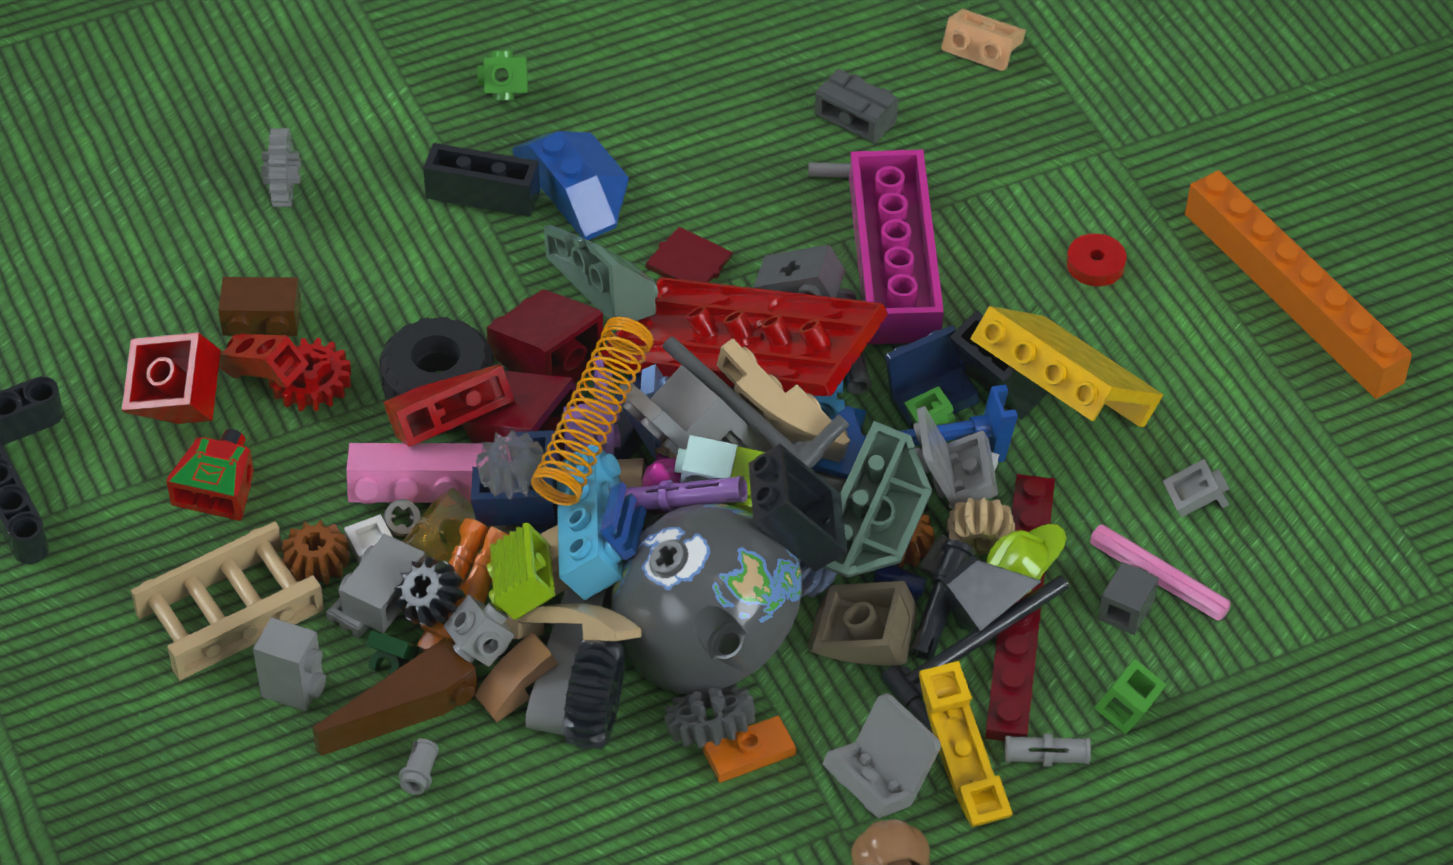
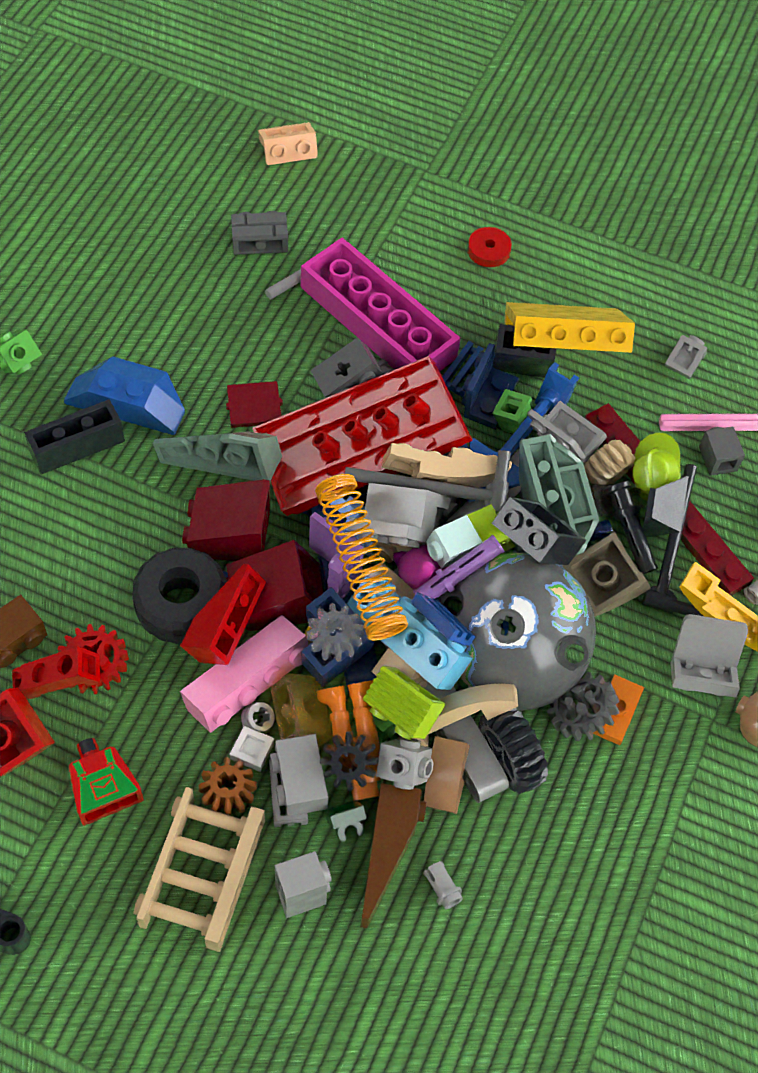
camera: 45 degrees left, 10 degrees up
(1298, 284) = (613, 191): orange brick -> none

